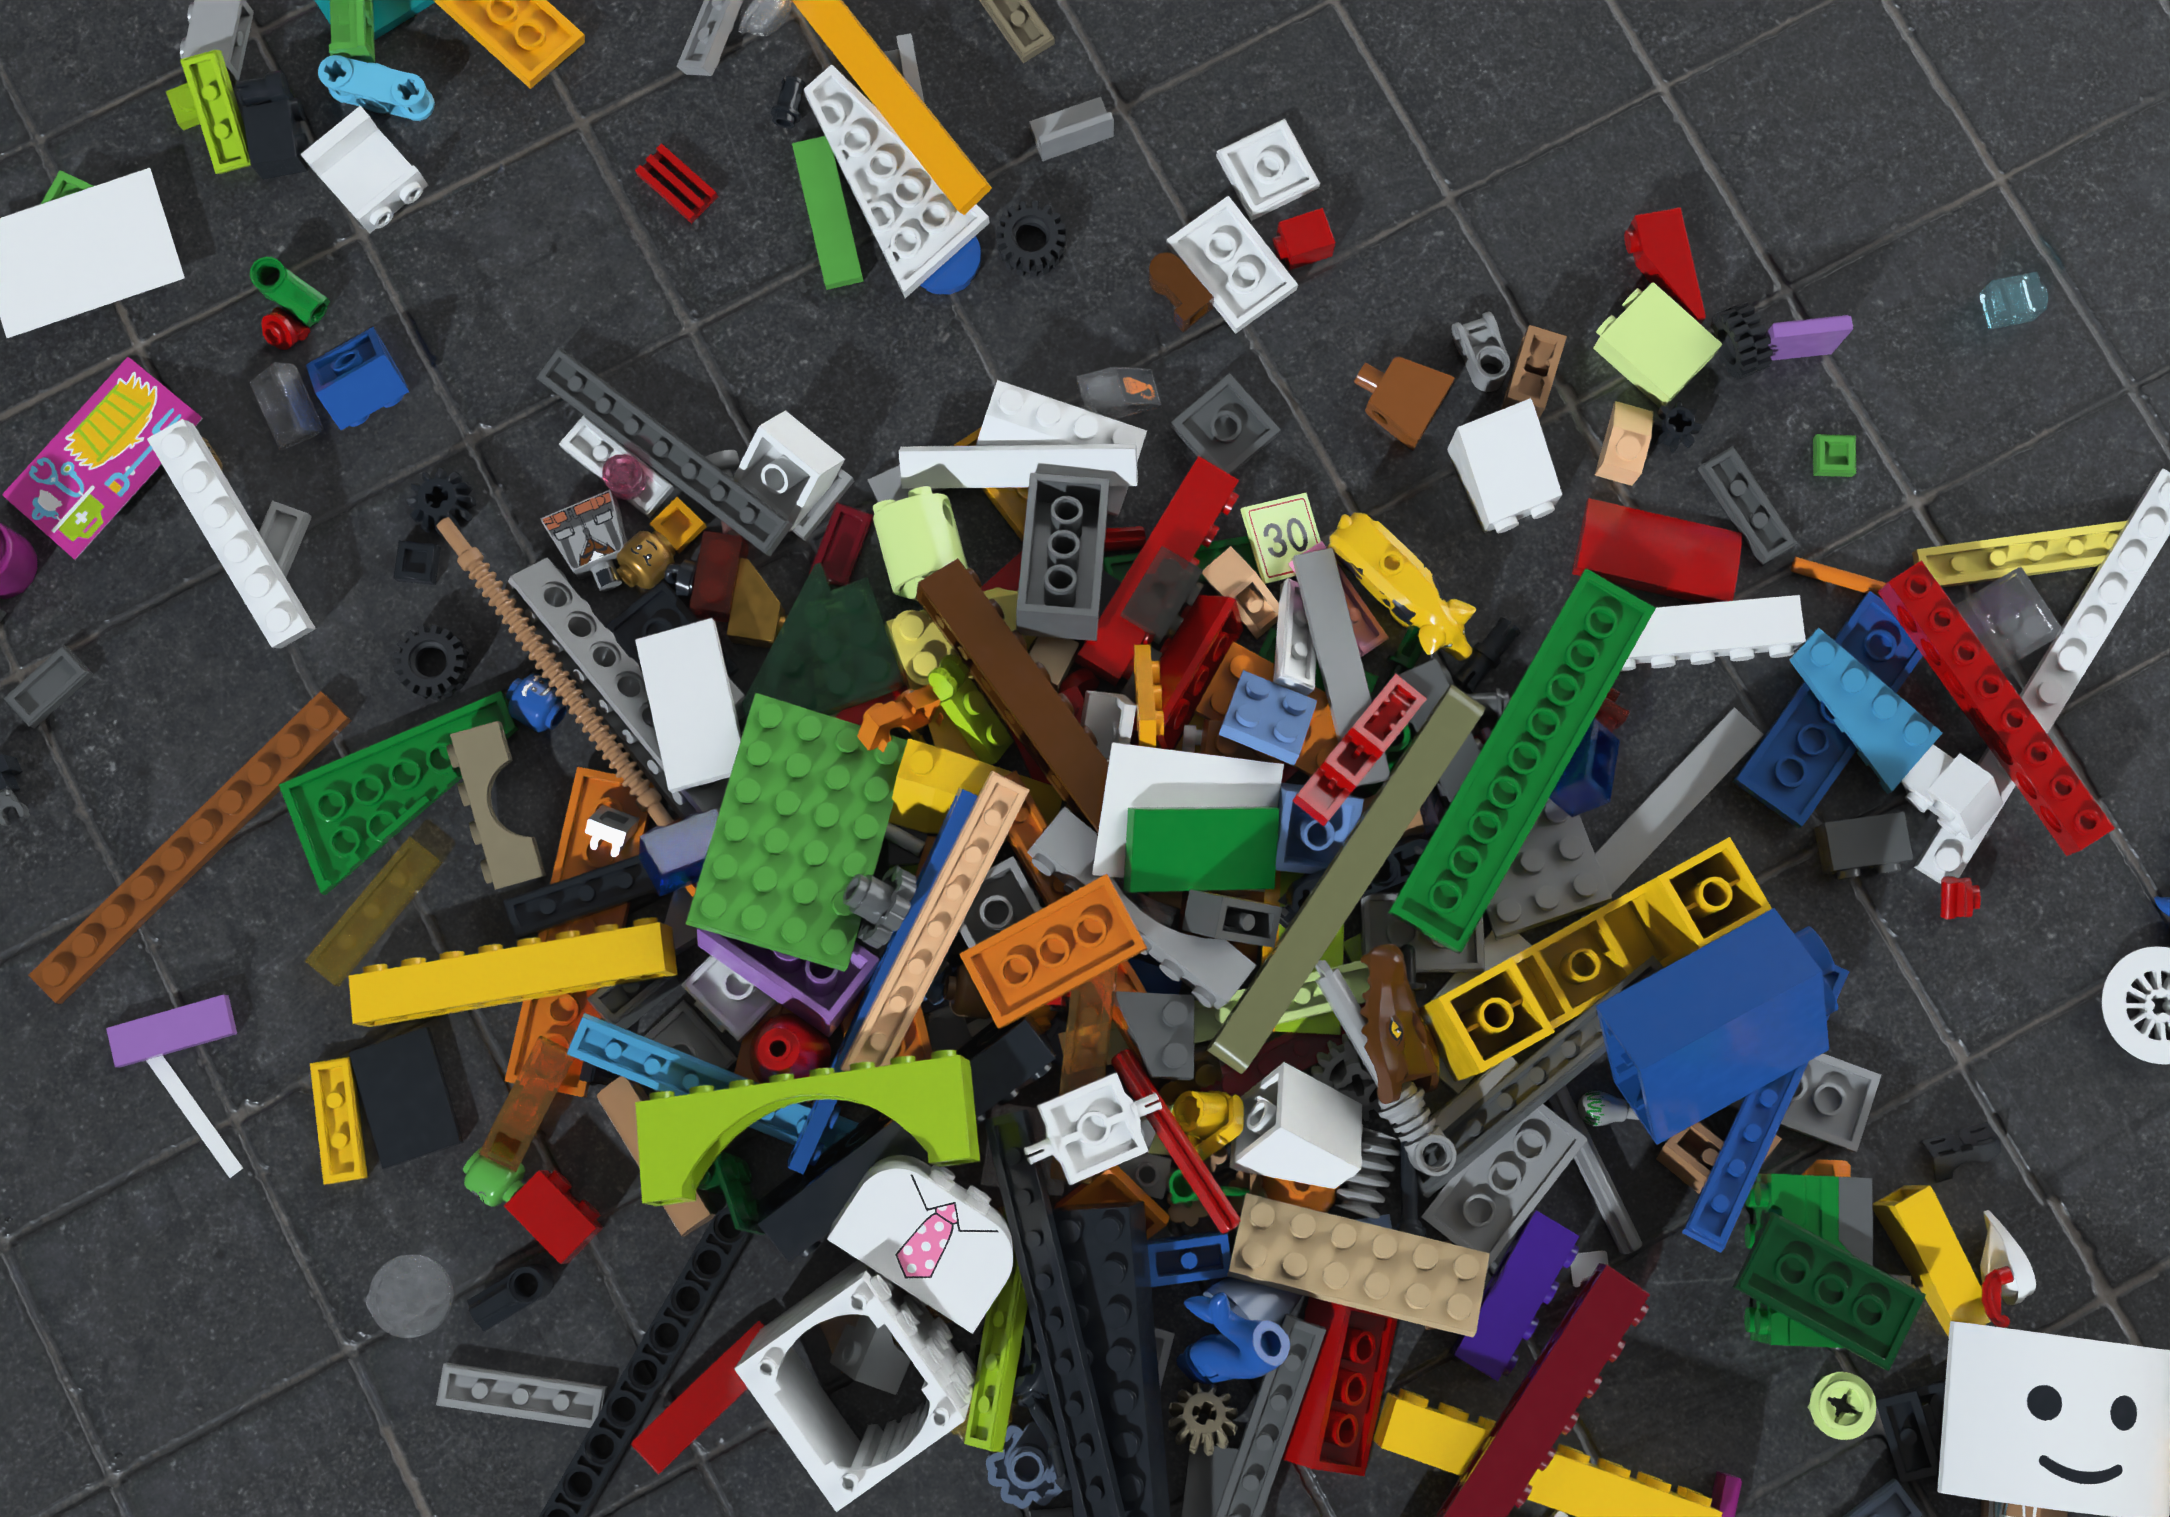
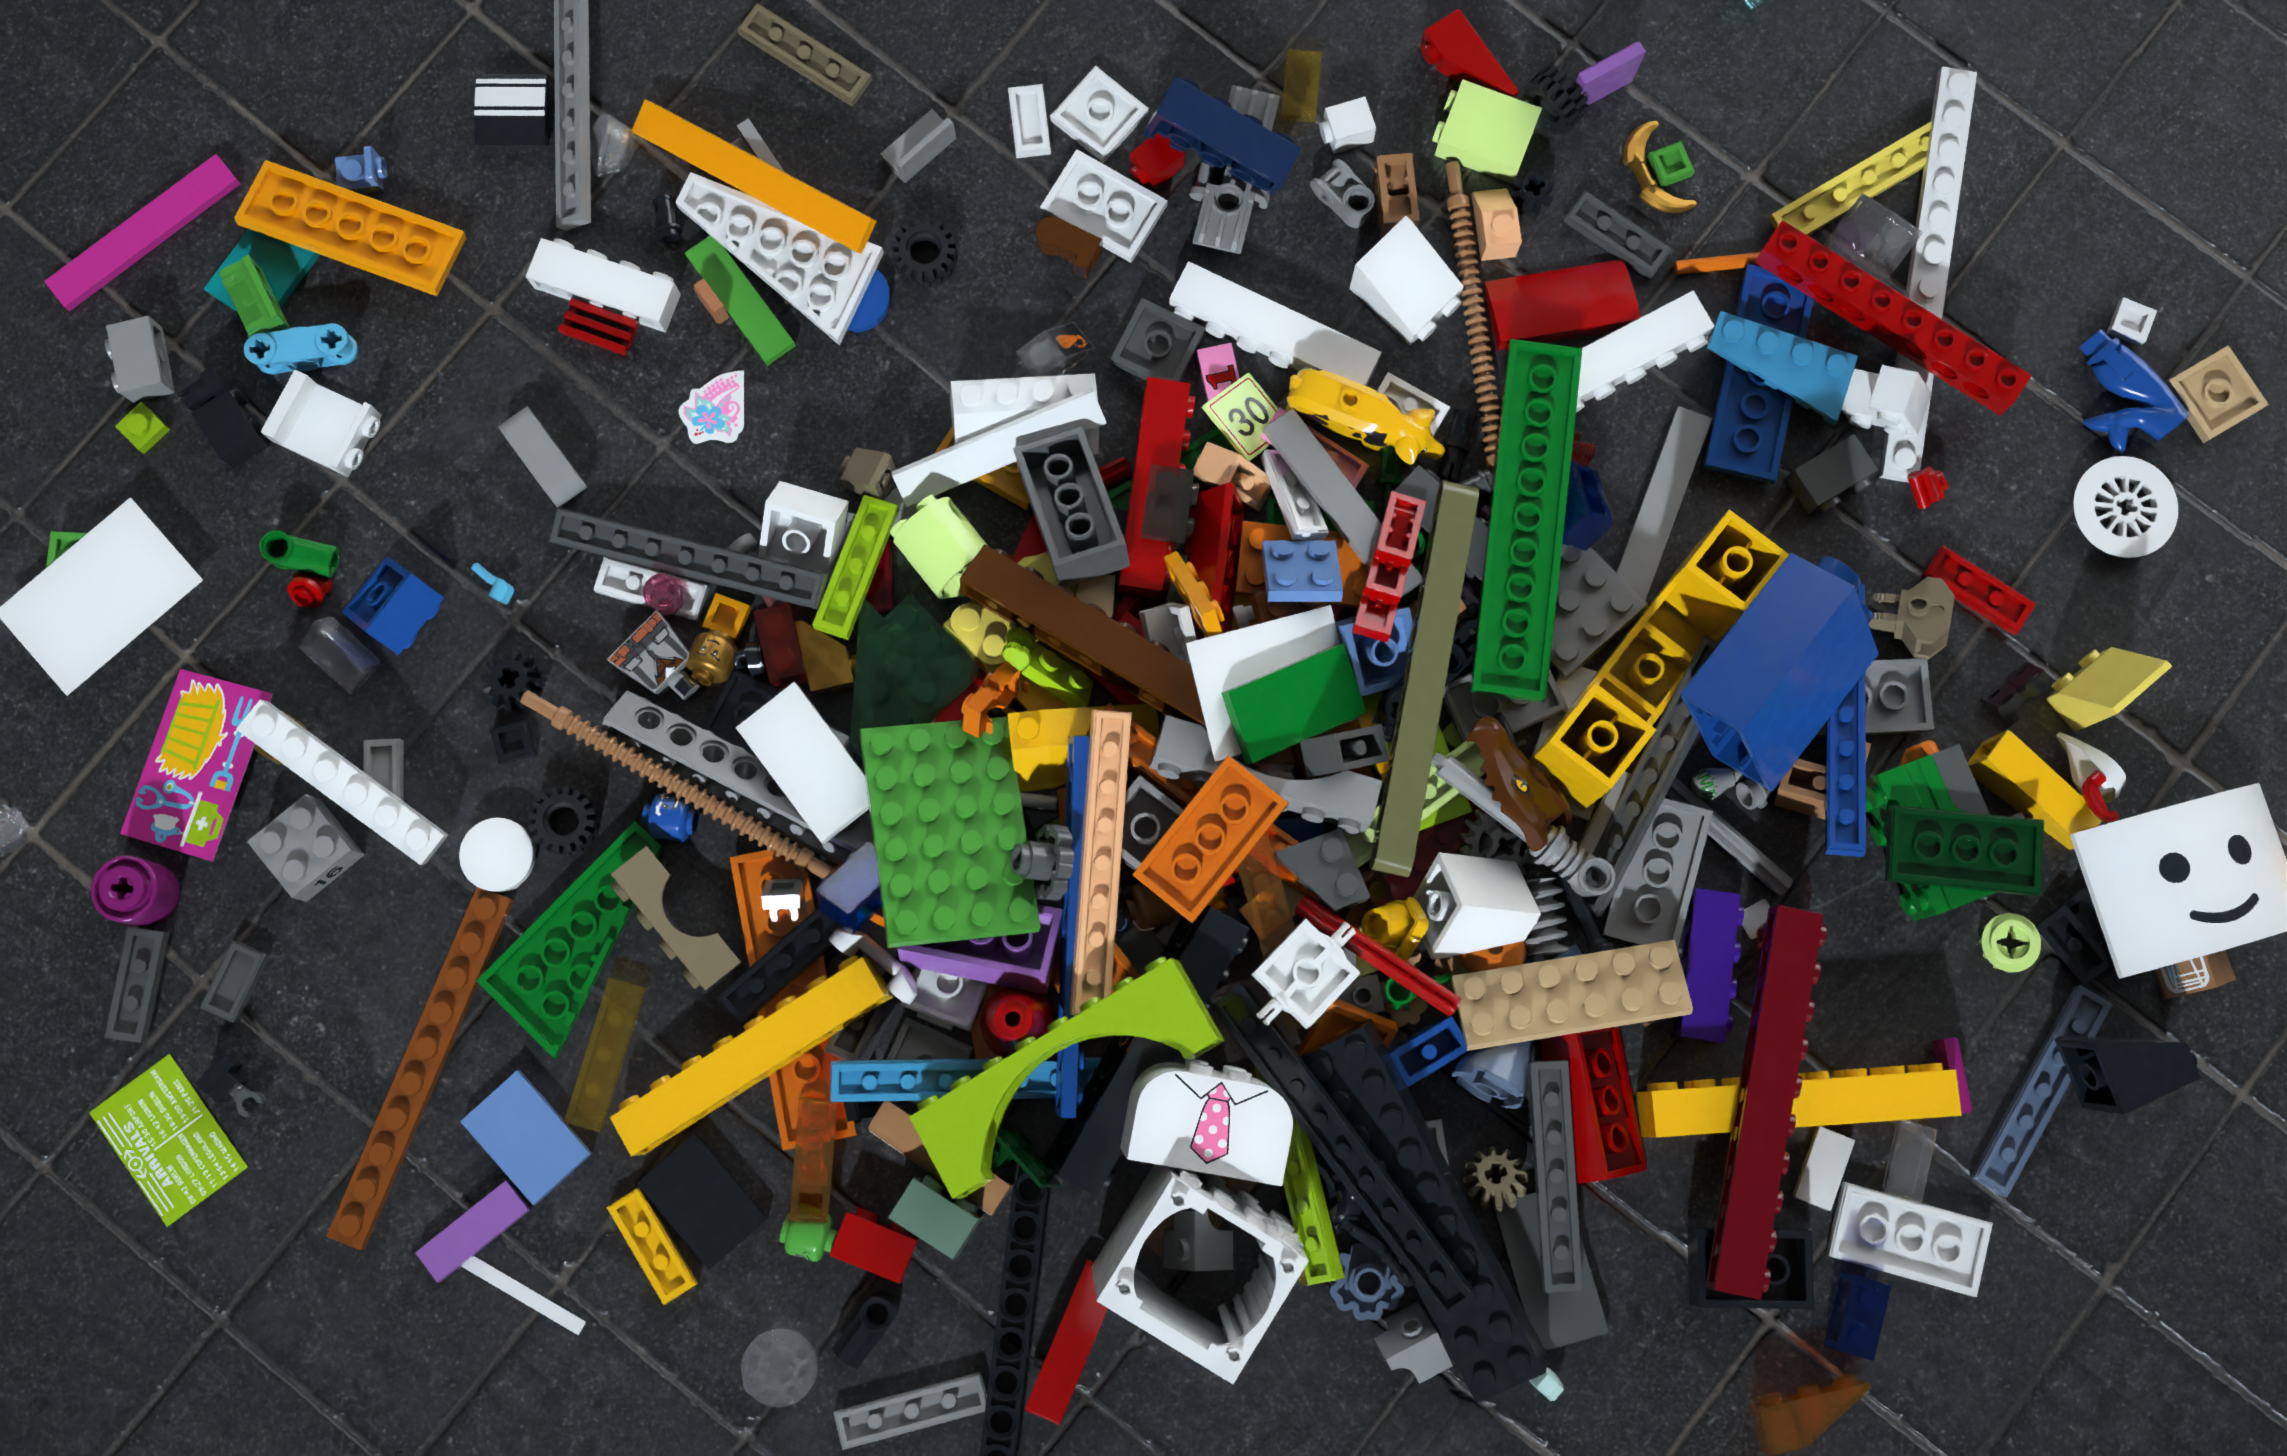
camera: 25 degrees left, 0 degrees up
(170, 584) = (305, 848): none -> light grey brick
(217, 110) = (170, 424): lime tile -> none
(262, 960) = (526, 1137): none -> medium blue tile
(353, 668) = (497, 855): none -> white tile
(468, 406) = (500, 589): none -> medium azure hand
(565, 290) = (542, 457): none -> light grey beam
(619, 1215) = (935, 1216): none -> sand green brick
(691, 966) = (901, 985): none -> white bar
(698, 142) = (603, 283): none -> white brick
(757, 312) = (716, 409): none -> sticker
(796, 202) = (710, 301): none -> nougat tile
(824, 528) = (856, 567): none -> lime plate
(877, 439) = (868, 473): none -> dark tan slope
(1194, 148) = (1029, 121): none -> white tile
(1242, 1350) = (1508, 1106): blue piece -> none
(1276, 476) = (1217, 368): none -> bright pink tile
(1346, 456) = (1268, 327): none -> white brick
(1379, 241) = (1222, 136): none -> dark blue wedge
(1389, 288) = (1223, 227): none -> light grey piece
(1404, 397) = (1296, 259): dark orange torso -> none
(1458, 585) = (1412, 398): none -> white plate
(1486, 222) = (1301, 85): none -> clear yellow tile
(1515, 282) = (1348, 125): none -> white brick
(1594, 408) = (1458, 204): none -> medium nougat hose
(1637, 1139) = (1752, 794): none -> light grey plate
(1800, 477) = (1650, 193): none -> pearl gold piece
(1892, 1031) = (1921, 618): none -> dark tan hinge
(1967, 1027) = (1980, 590): none -> red tile
(2054, 1181) = (2103, 685): none -> light yellow slope

